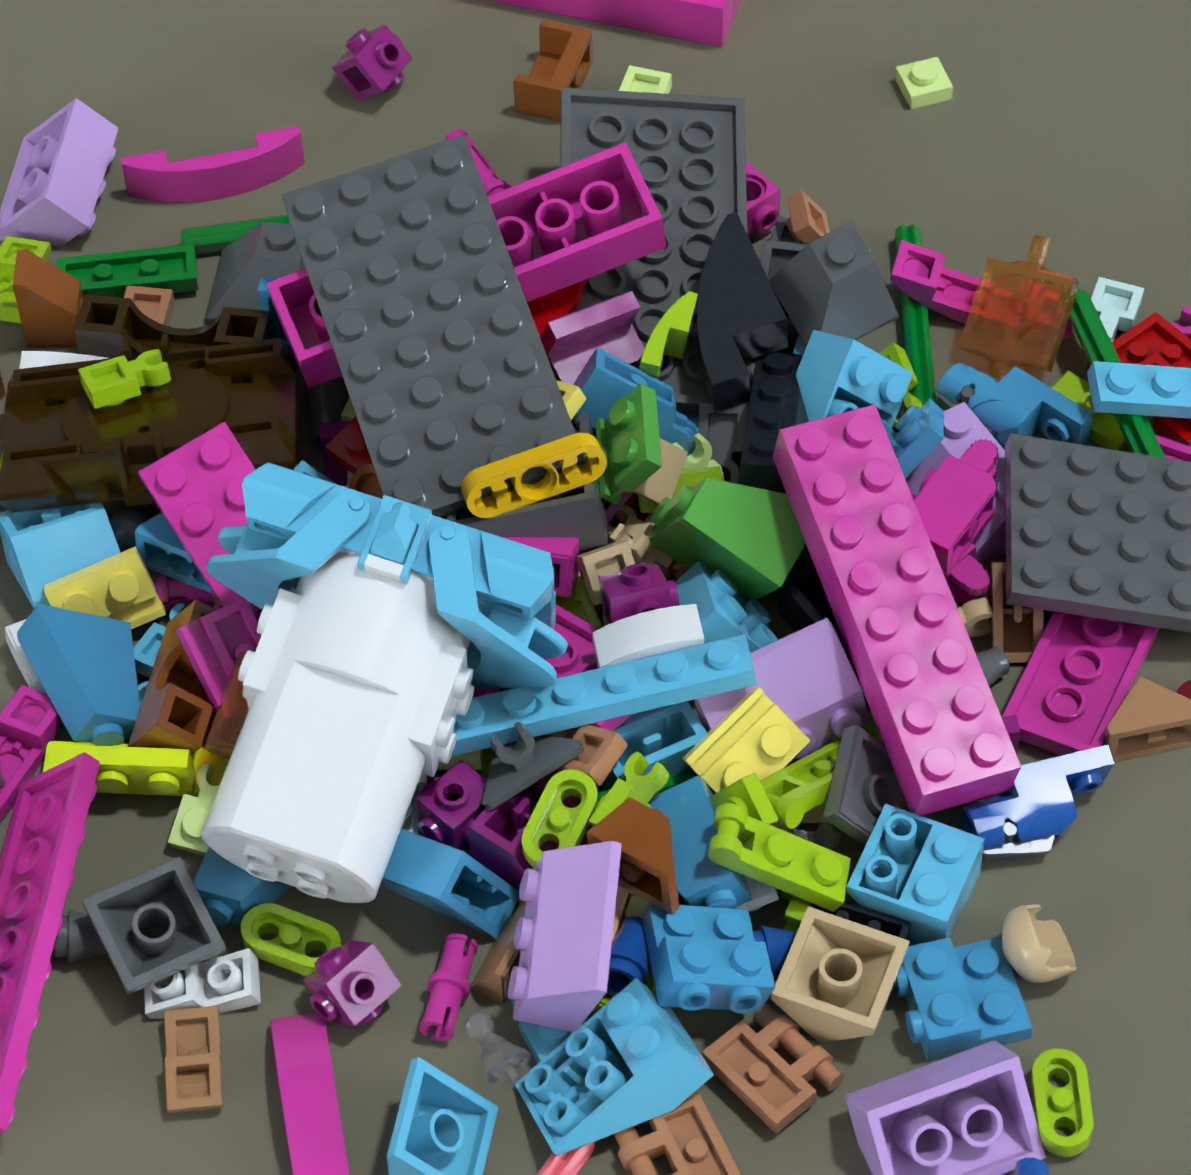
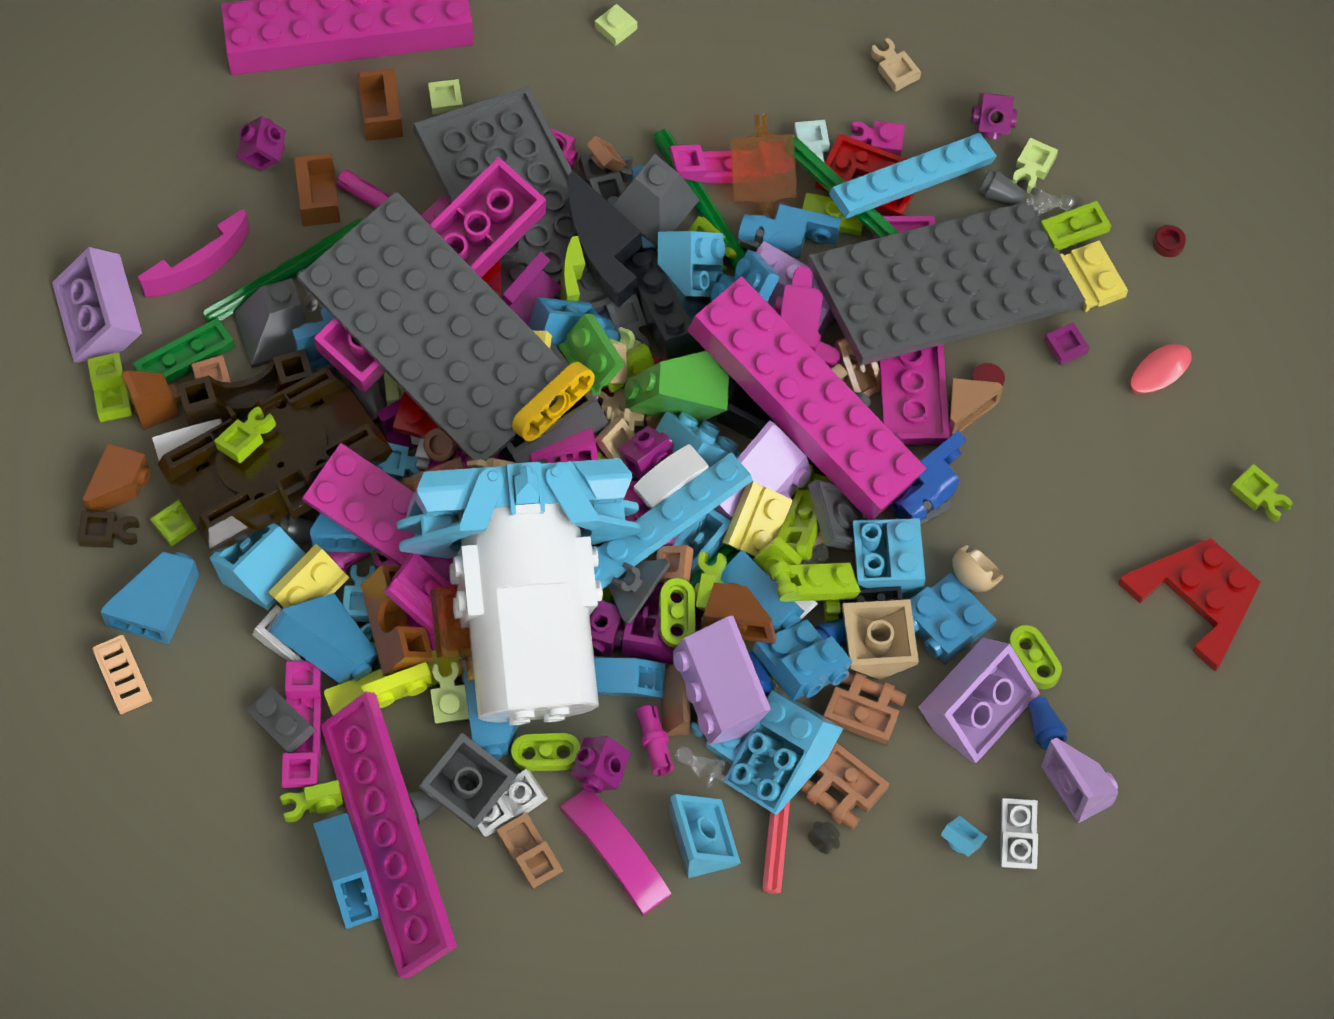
camera: 30 degrees left, 10 degrees up
(412, 124) = (317, 189): none -> dark orange panel

